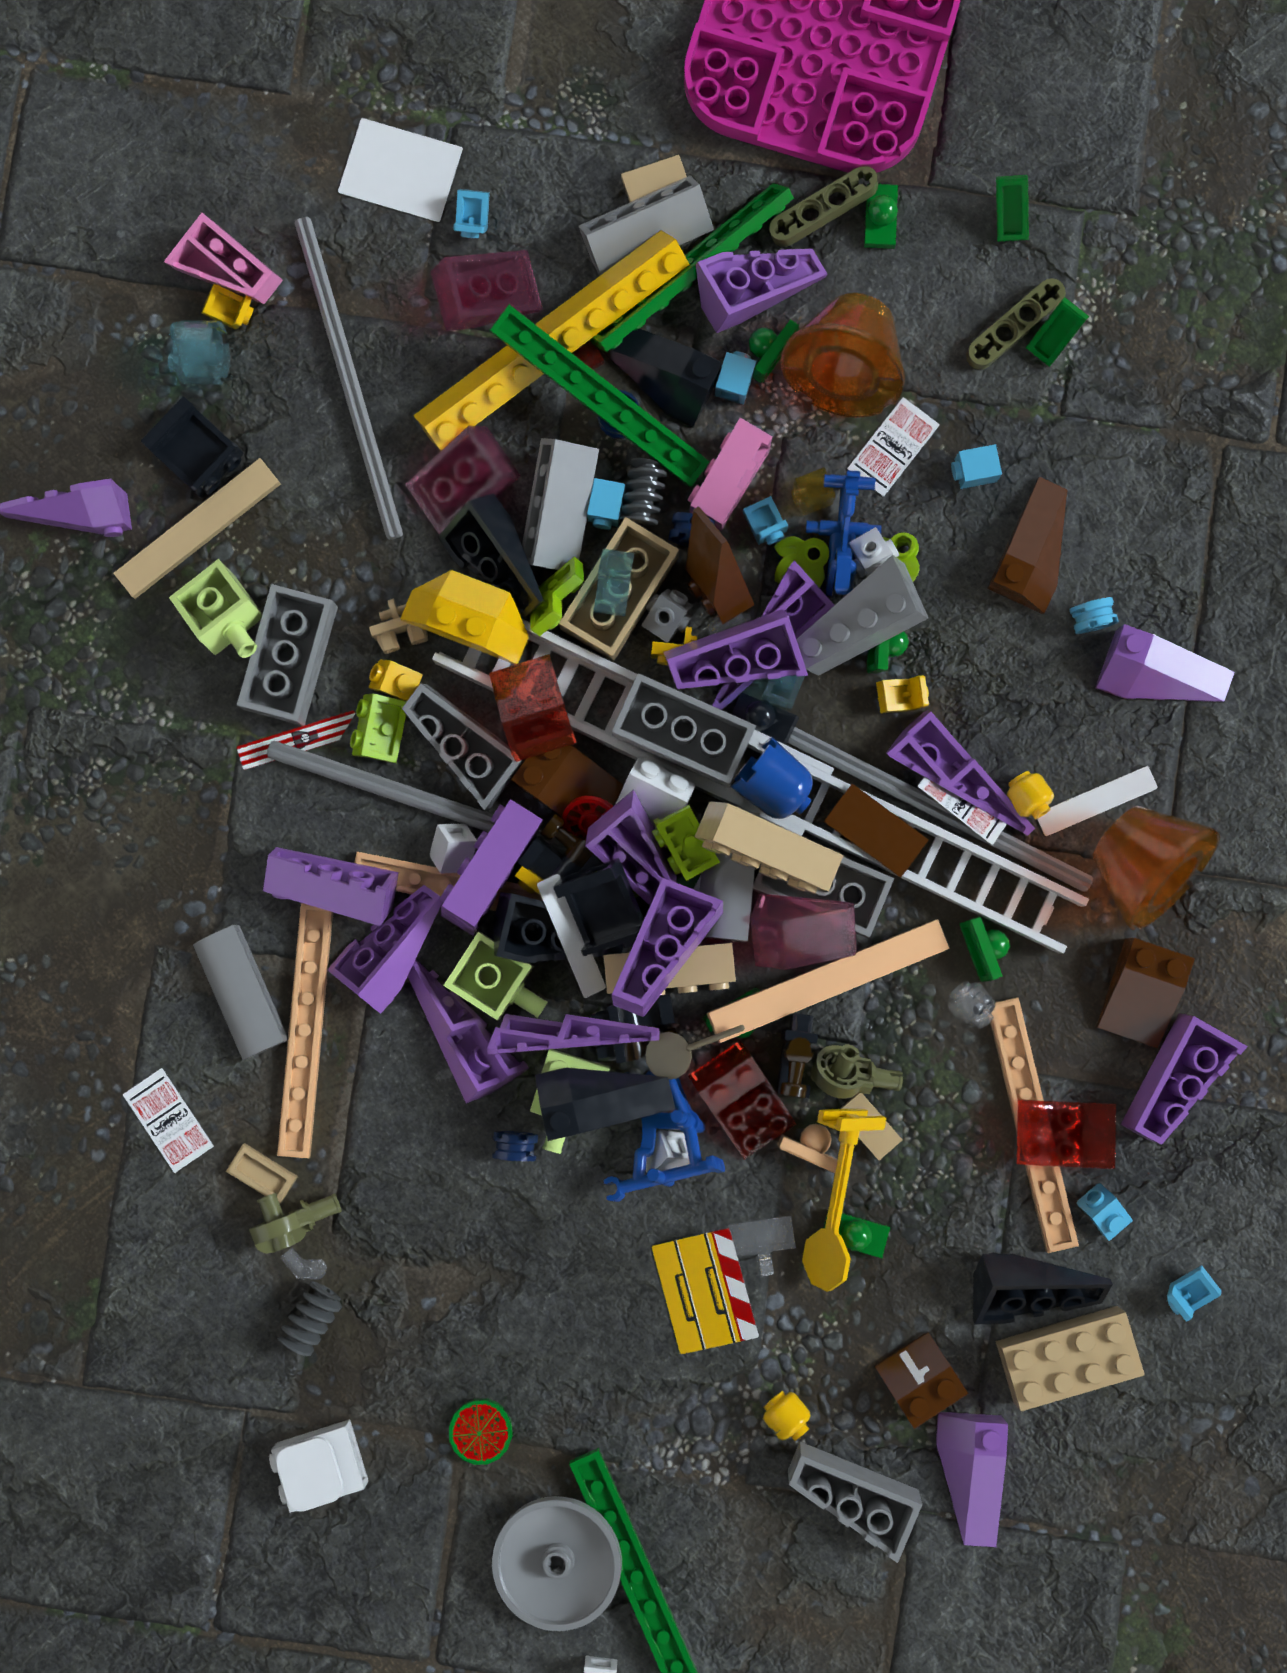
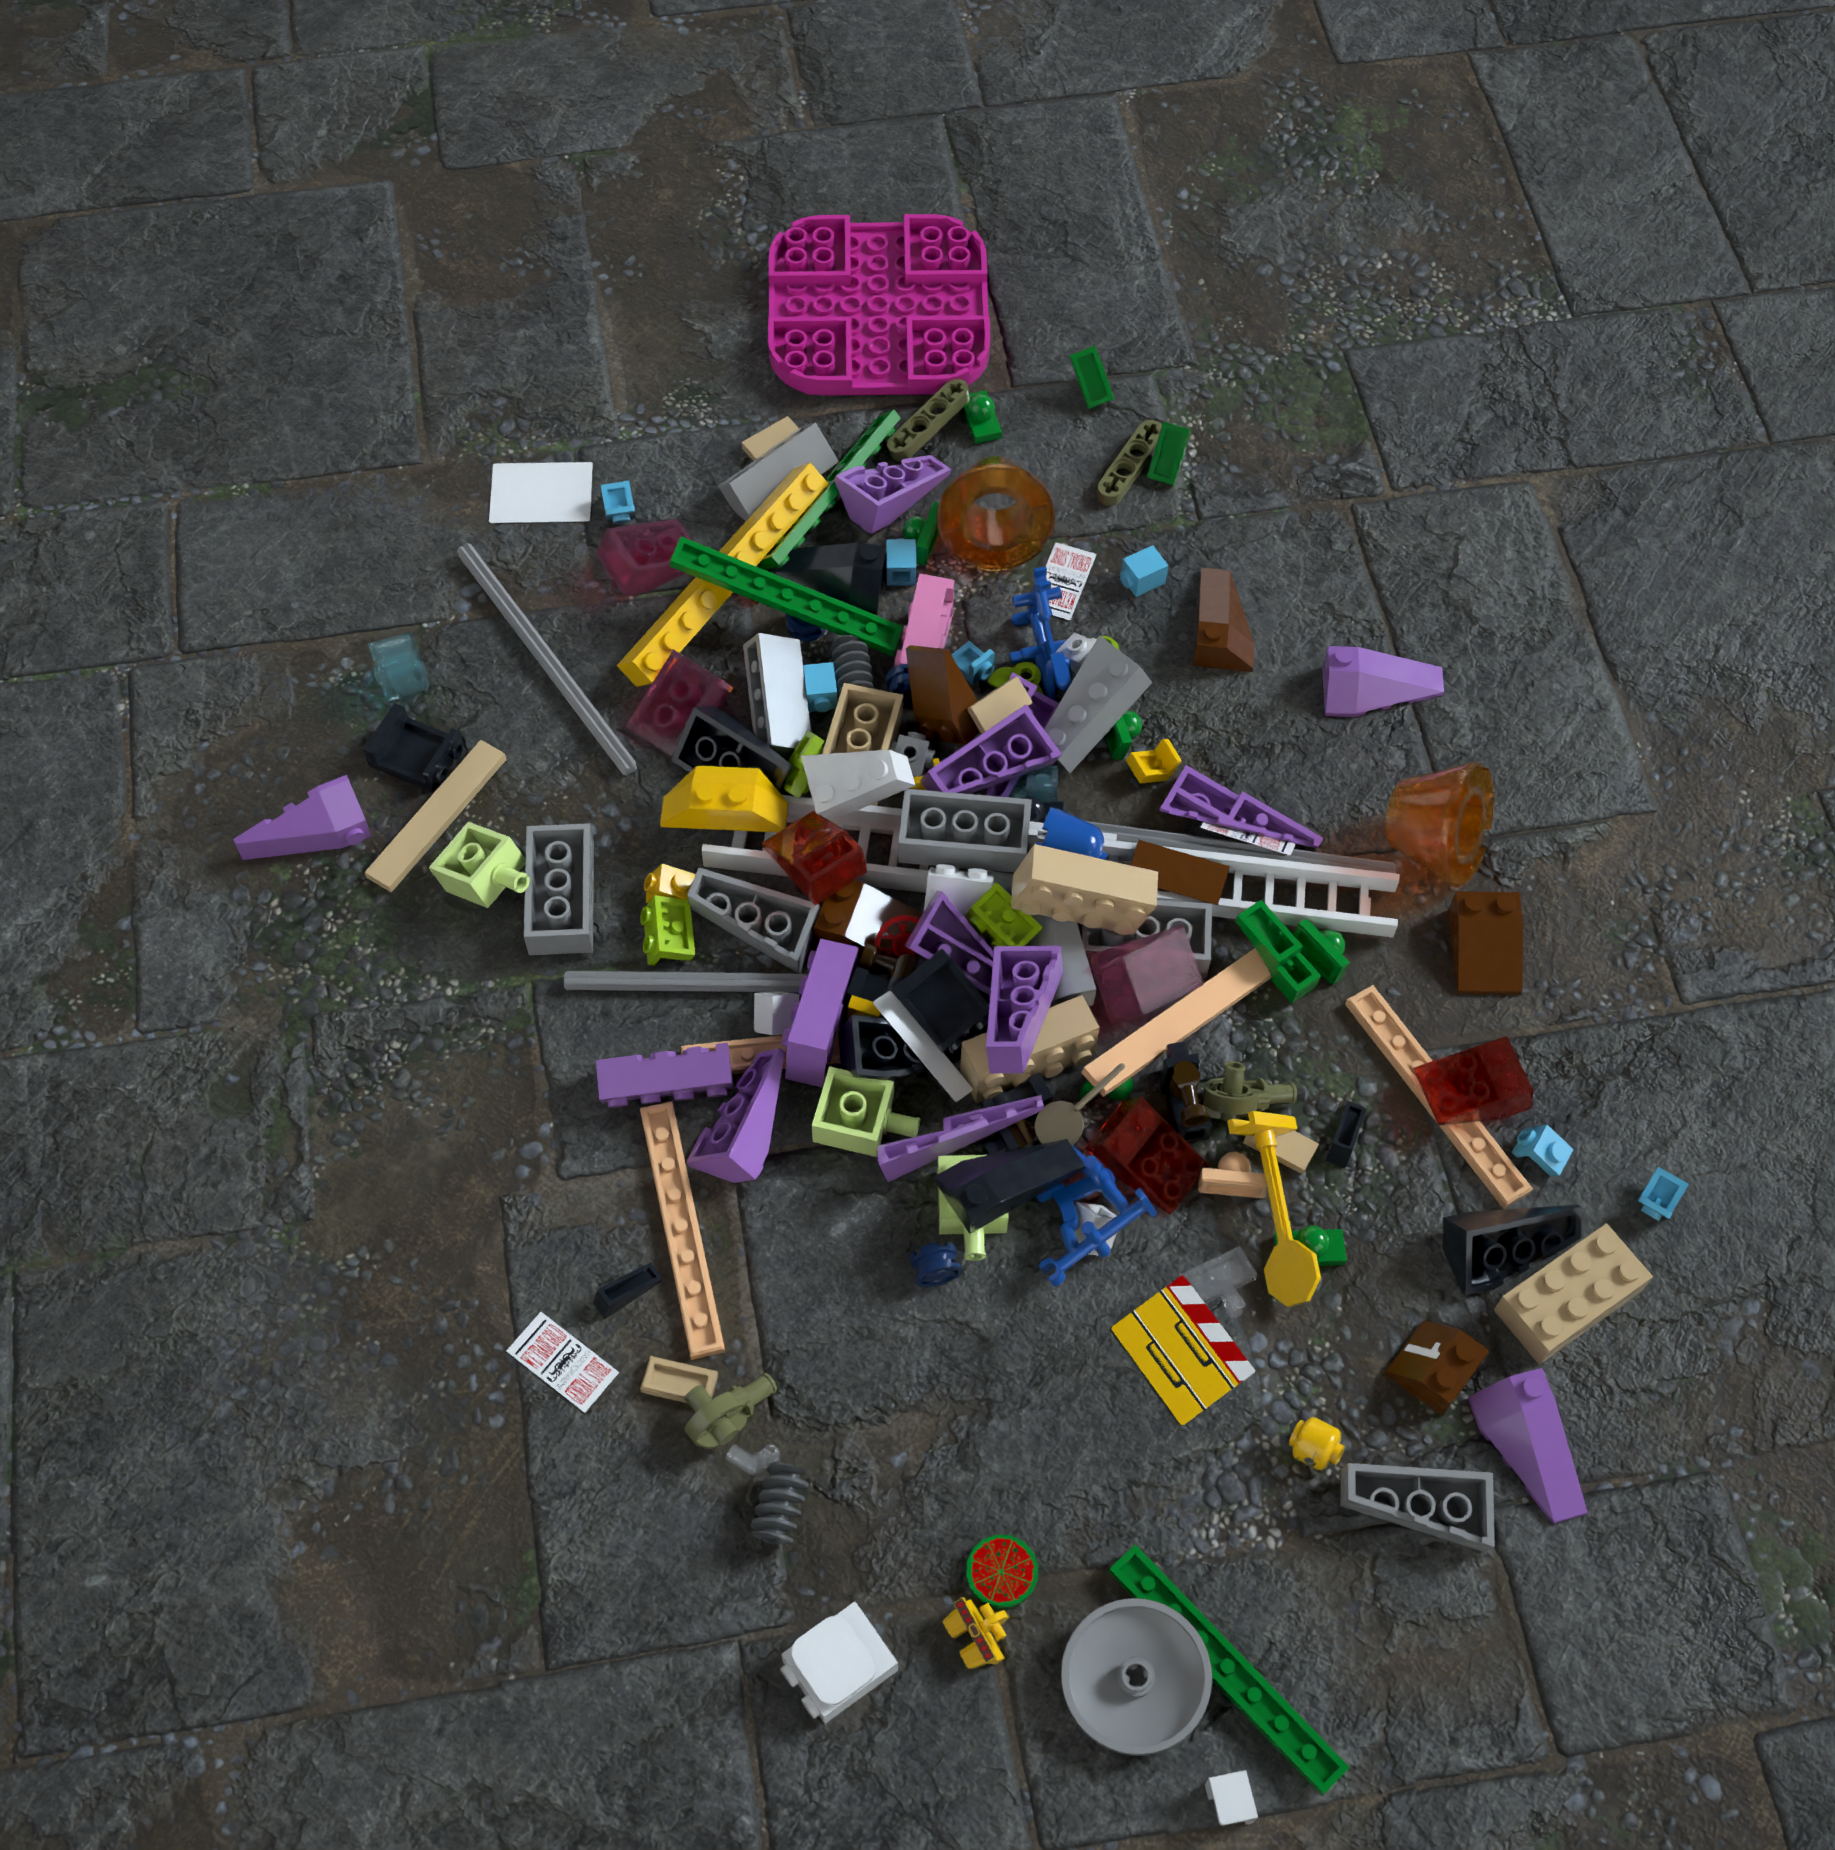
camera: 20 degrees left, 25 degrees down
(218, 258) = (401, 593): bright pink wedge -> none
(227, 307) = (422, 628): yellow bracket -> none
(240, 991) = (602, 1208): light grey brick -> none
(242, 1073) = (625, 1289): none -> black piece
(303, 738) = (602, 960): sticker -> none
(386, 632) = (654, 839): tan hips -> none
(444, 1476) = (968, 1618): none -> yellow hips
(462, 1038) = (858, 1194): medium lavender wedge -> none
(591, 646) = (855, 779): none -> white wedge
(613, 582) = (852, 729): clear light blue slope -> none
(767, 598) = (999, 704): none -> tan tile
(810, 493) = (1006, 627): clear yellow brick -> none
(933, 1135) = (1346, 1134): none -> black piece
(939, 941) = (1279, 951): none -> green slope
(971, 1005) = (1332, 1000): clear head -> none
(1030, 795) = (1306, 809): yellow head -> none
(1094, 615) = (1297, 652): medium azure wheel -> none
(1097, 800) = (1364, 807): white sticker -> none
(1179, 1077) = (1554, 999): medium lavender wedge -> none

